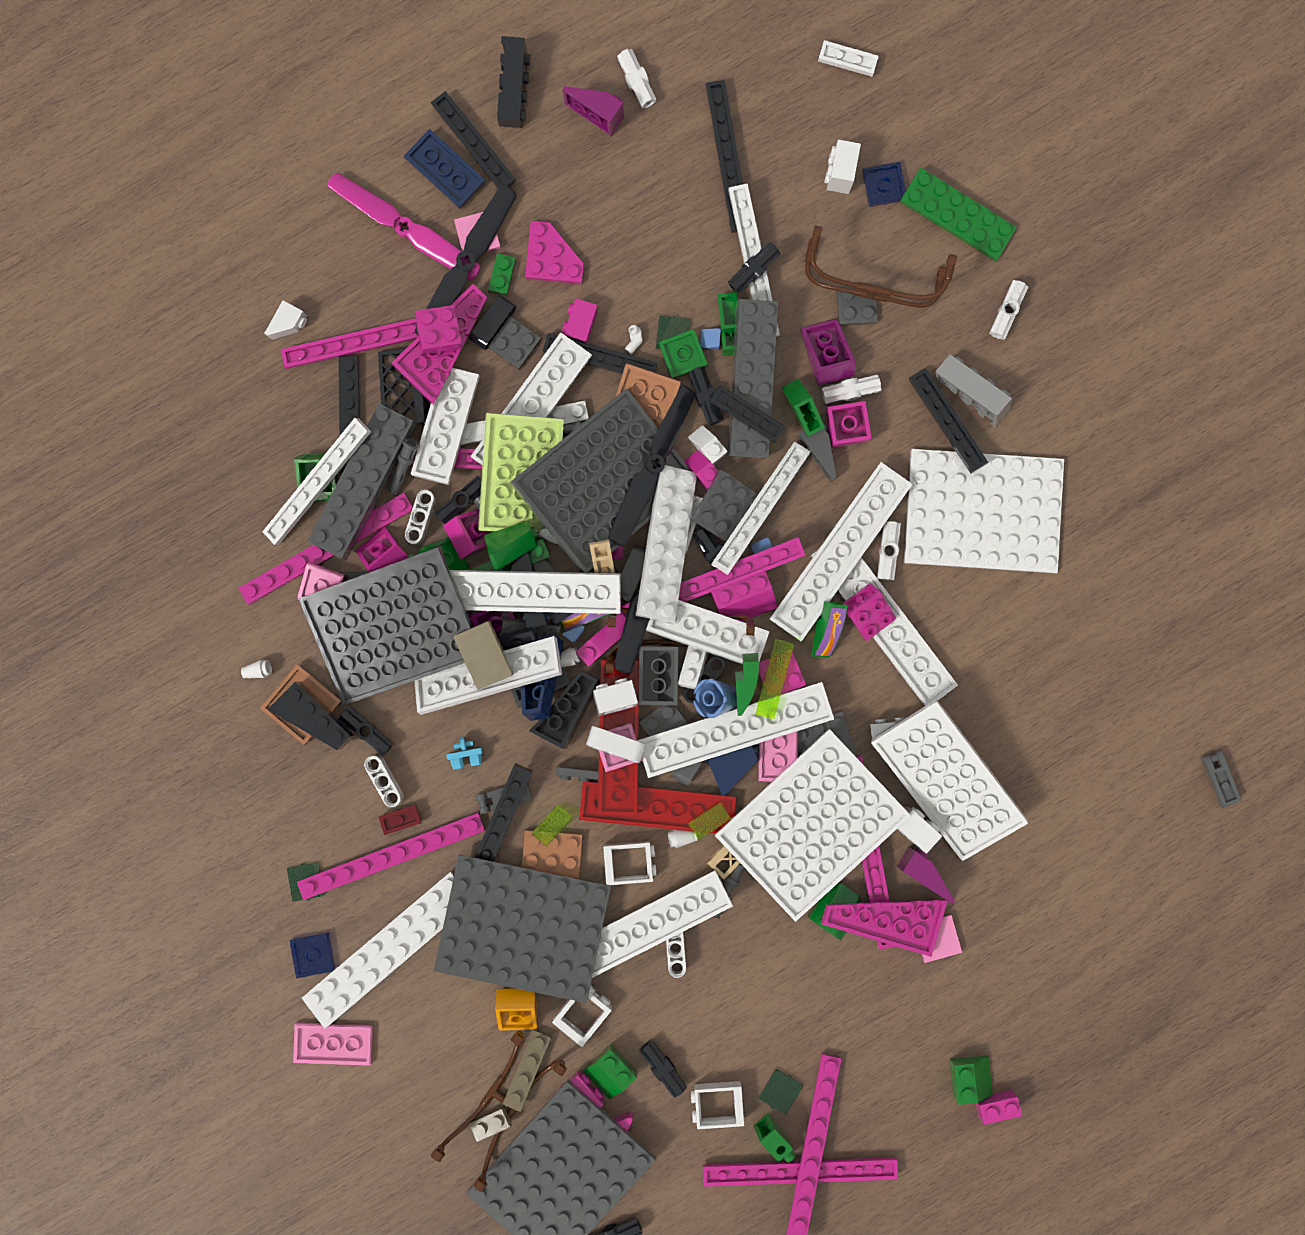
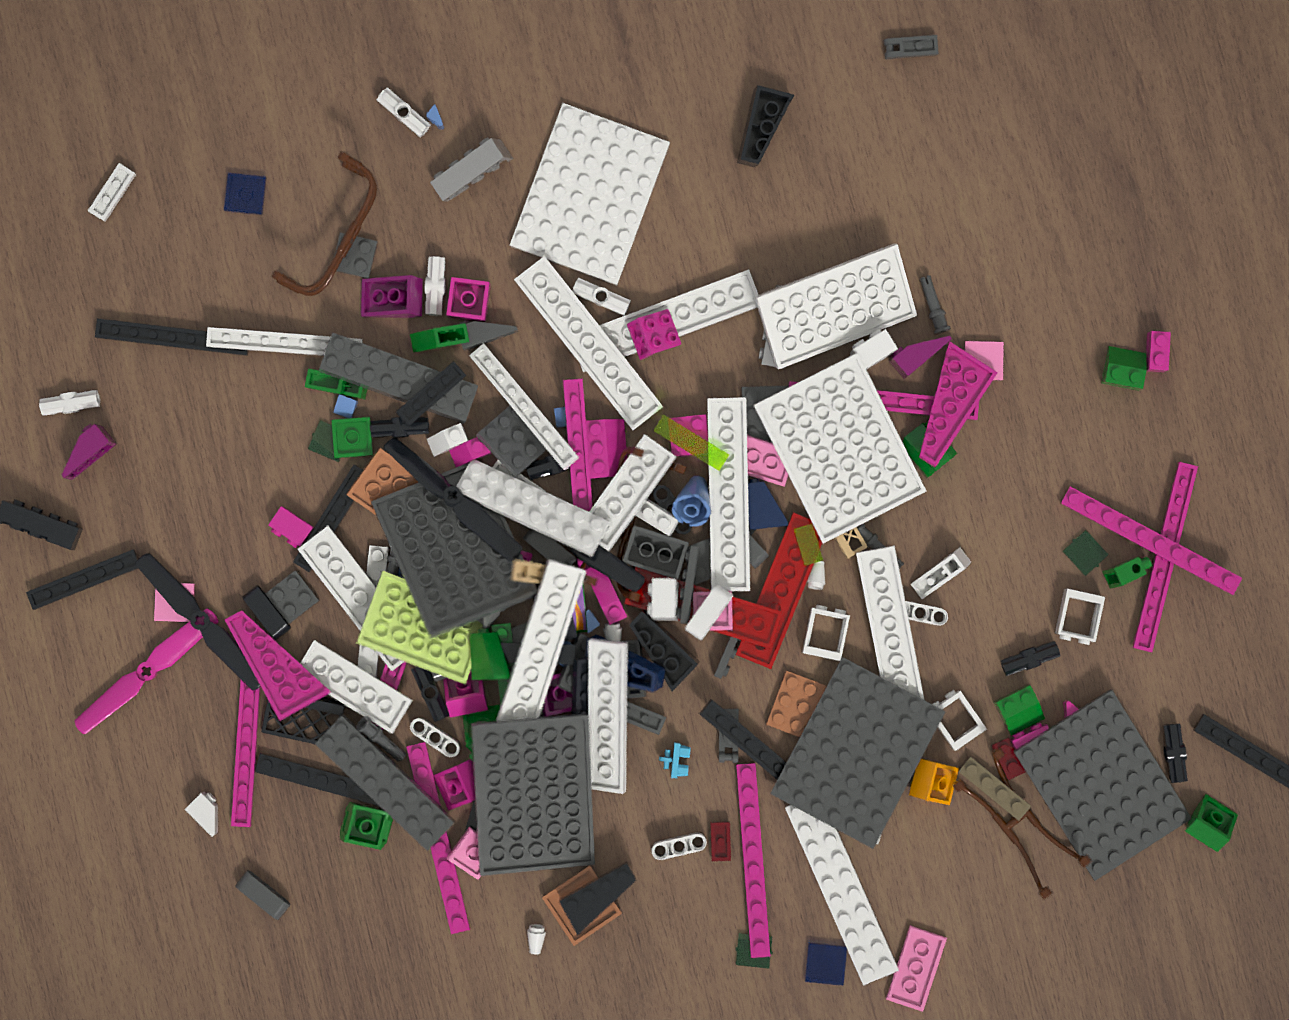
camera: 75 degrees left, 0 degrees up
(224, 398) = (262, 895): none -> dark grey beam
(316, 481) = (372, 826): white plate -> none
(356, 722) = (636, 842): black piece -> none
(438, 329) = (261, 665): dark pink brick -> none
(444, 169) = (101, 615): dark blue plate -> none
(483, 655) = (587, 712): dark tan tile -> none
(490, 1124) = (1035, 838): plate -> none
(496, 712) = (644, 718): none -> dark grey plate
(502, 274) = (221, 589): green plate -> none
(551, 257) = (218, 536): dark pink plate -> none
(552, 825) = (769, 696): clear neon green tile -> none
(553, 1081) = (1009, 762): none -> dark red plate
(636, 339) = (323, 478): white arm -> none
(643, 715) = (687, 593): none -> dark grey plate
(720, 957) = (941, 573): none -> white slope
(746, 681) = (685, 470): green slope -> none
(754, 268) = (291, 345): black piece -> none
(829, 628) = (659, 376): slope -> none
(842, 166) = (215, 228): white brick -> none
(948, 421) = (493, 202): black plate -> none
(958, 214) = (296, 132): green plate -> none
(969, 879) = (937, 314): none -> dark grey pin
(1013, 340) = (434, 117): none -> medium blue slope
(1107, 656) = (763, 119): none -> black wedge

